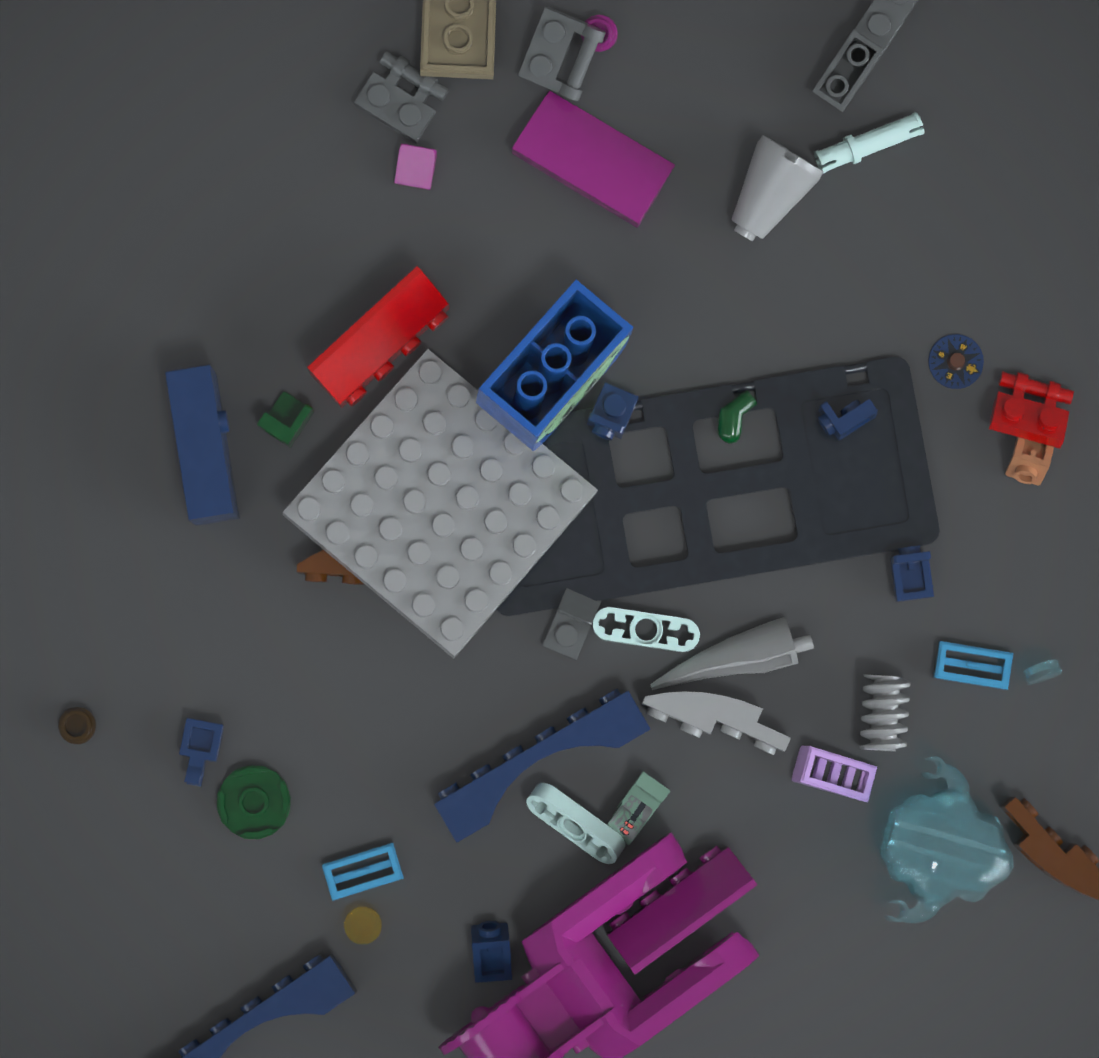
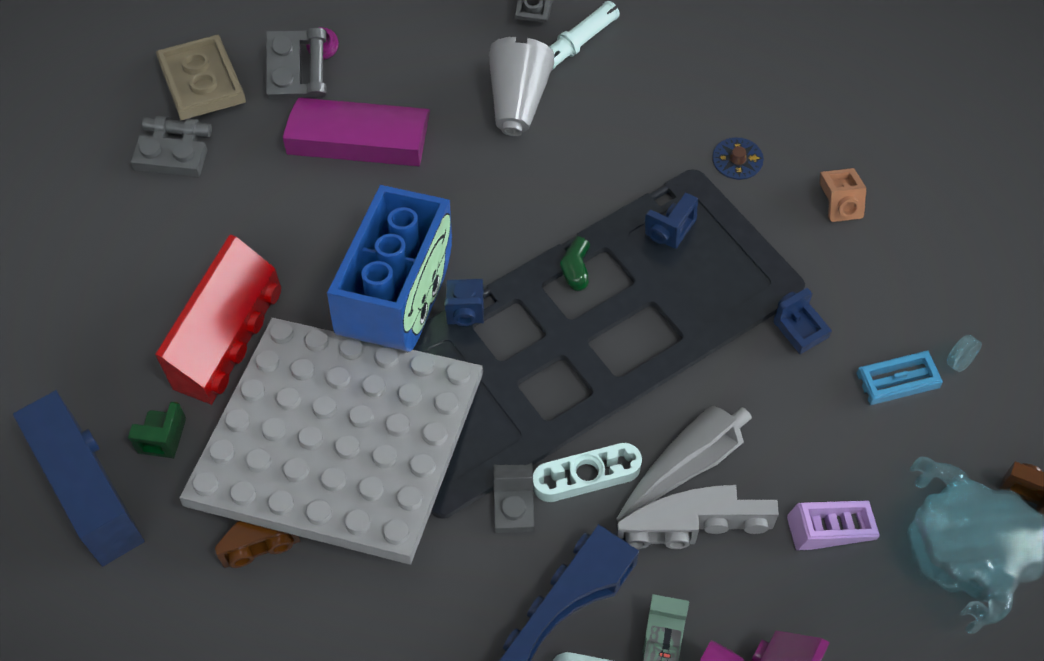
camera: 20 degrees left, 25 degrees down
(415, 166) = (204, 187): magenta slope -> none
(885, 713) = (847, 446): light grey piece -> none
(1027, 418) = (822, 159): red plate -> none

